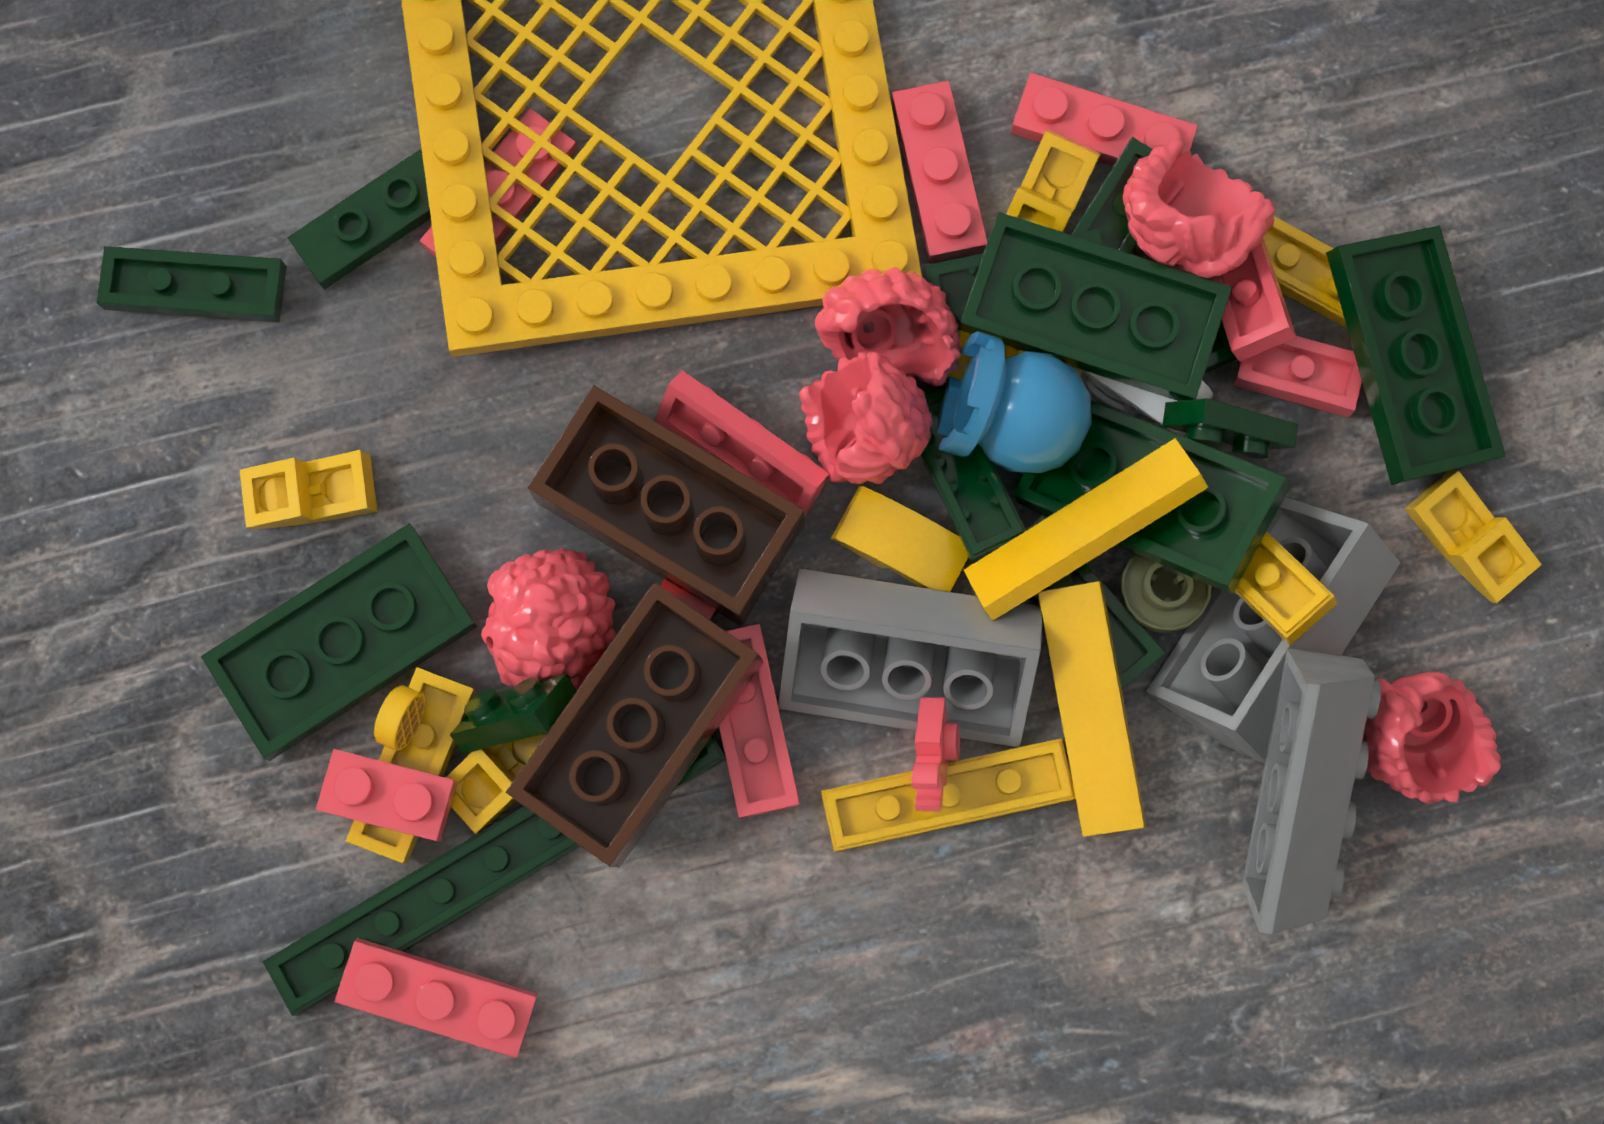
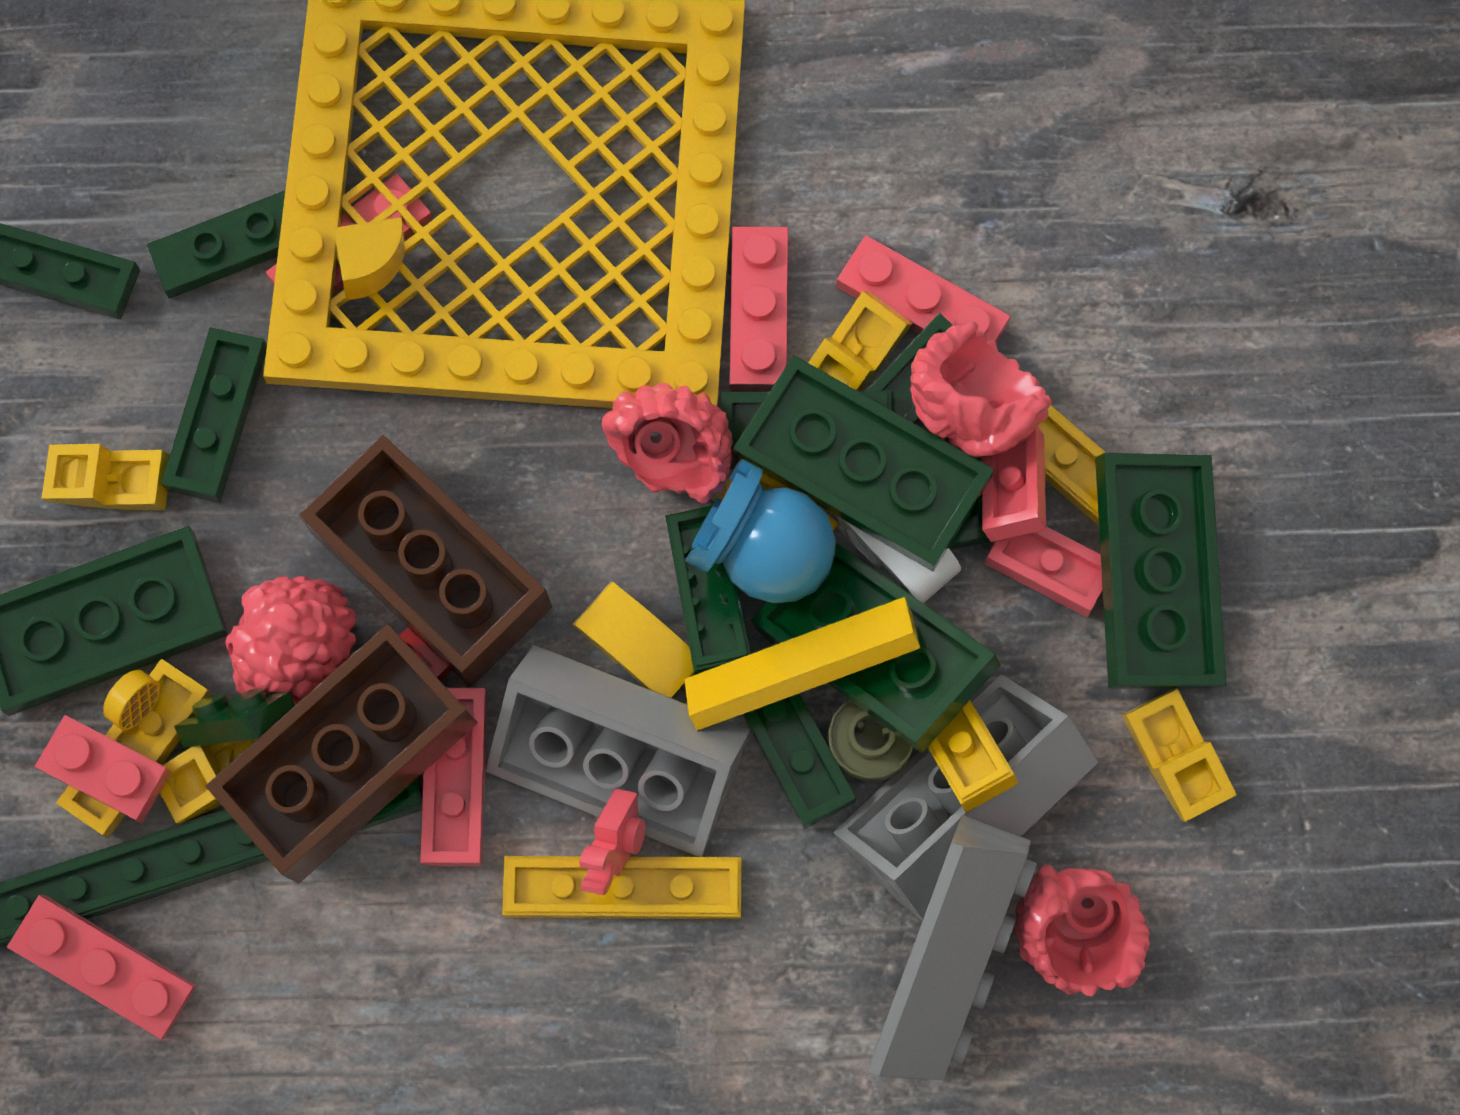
camera: 15 degrees right, 5 degrees down
(405, 401) = (214, 415): none -> dark green plate
(529, 200) = (369, 255): none -> yellow brick
(739, 441) = (509, 518): coral plate -> none
(865, 419) = (627, 520): coral hair -> none
(1092, 709) = (773, 835): yellow tile -> none
(1221, 423) = (949, 592): dark green plate -> none

